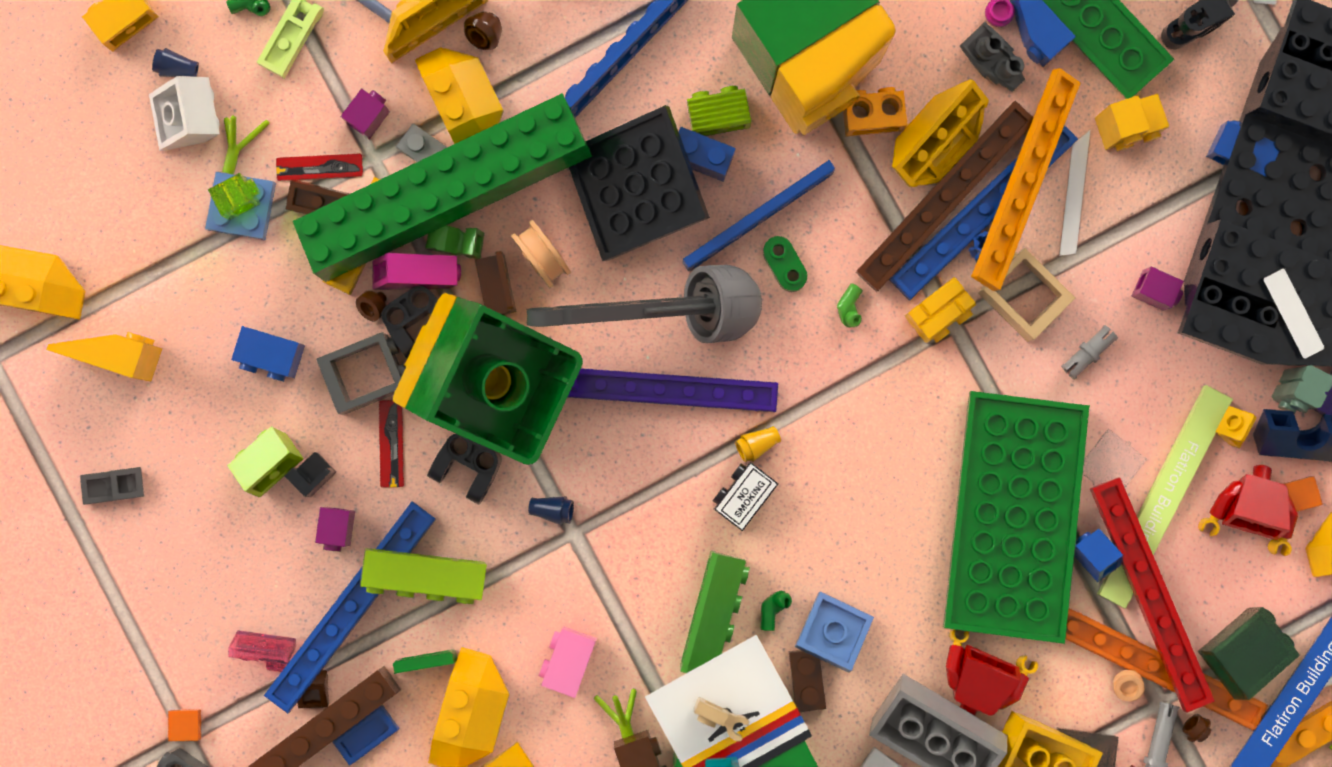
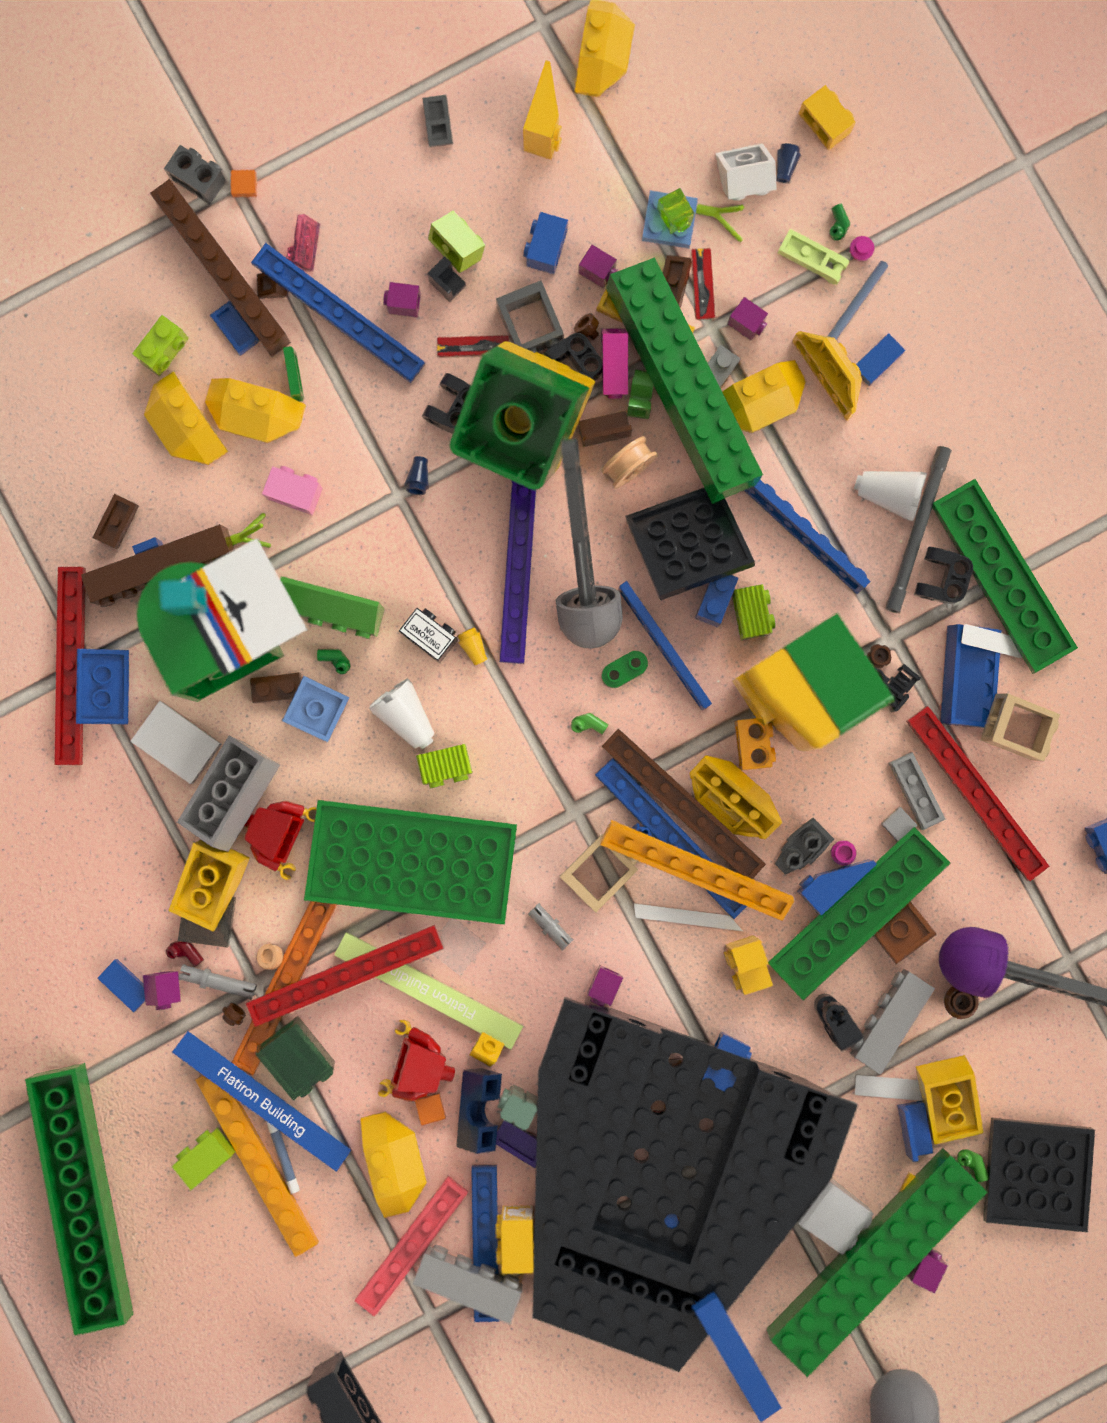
camera: 90 degrees right, 0 degrees up
(298, 291) = (597, 266): none -> magenta brick
(422, 574) = (363, 369): lime brick -> none
(483, 30) = (820, 415): reddish brown cone -> none
(711, 714) = (241, 591): tan plate -> none
(840, 525) = (404, 714): none -> white cone
(901, 476) = (444, 765): none -> lime brick
(941, 310) = (585, 799): yellow brick -> none
(1097, 554) = (378, 930): blue brick -> none
(1293, 313) = (581, 1095): white sticker -> none

